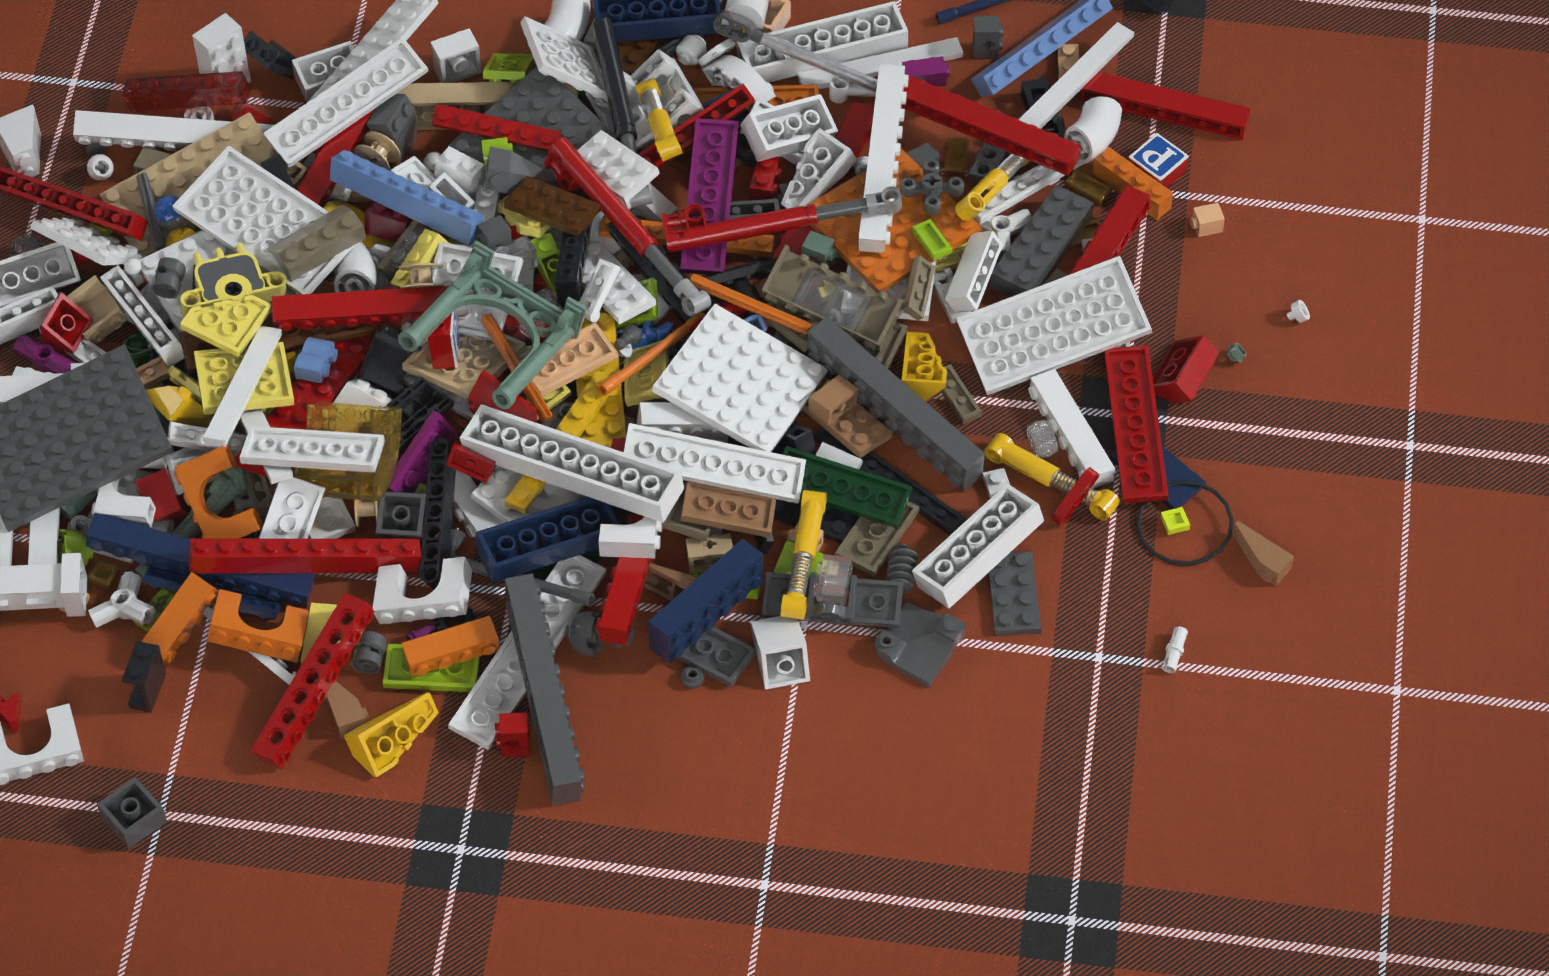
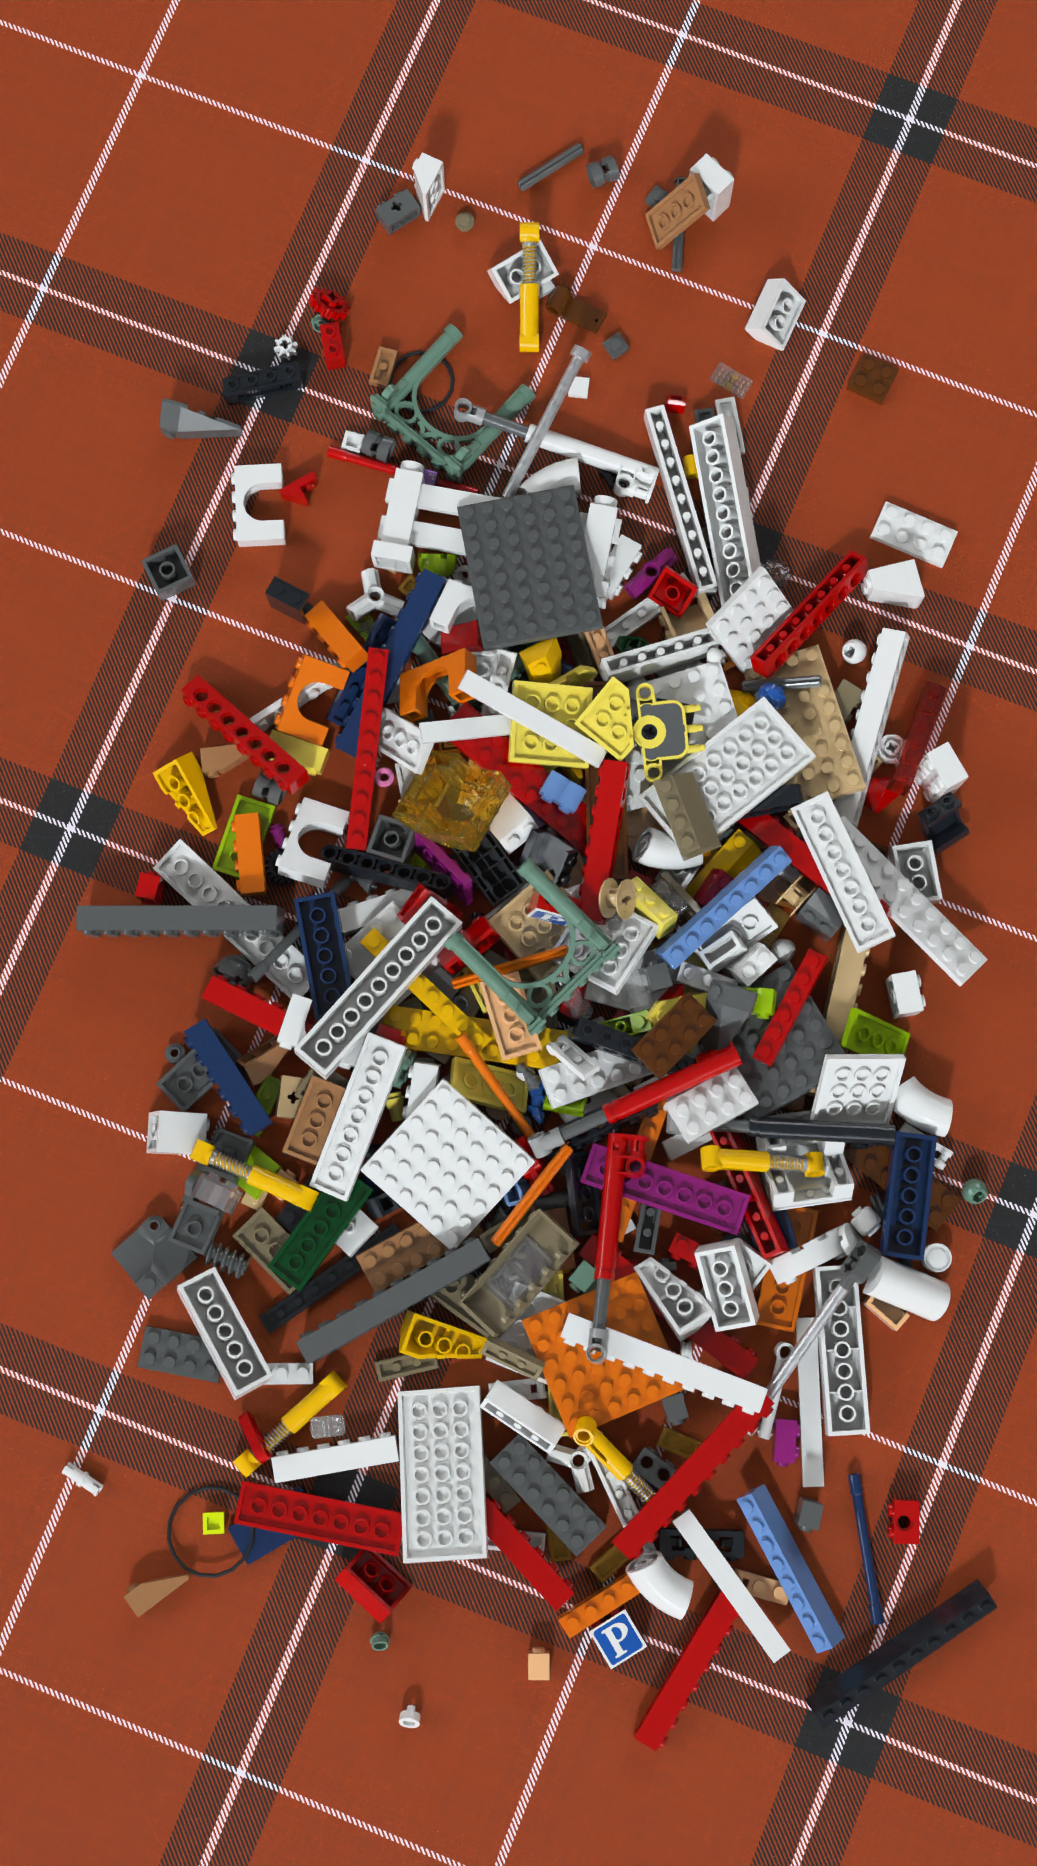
camera: 105 degrees right, 25 degrees up
(168, 277) = (683, 680): dark grey wheel -> none
(312, 449) = (439, 763): white plate -> none
(832, 400) = (411, 1244): medium nougat brick -> none
(931, 187) = (630, 1404): dark grey gear -> none
(931, 239) = (561, 1385): lime tile -> none

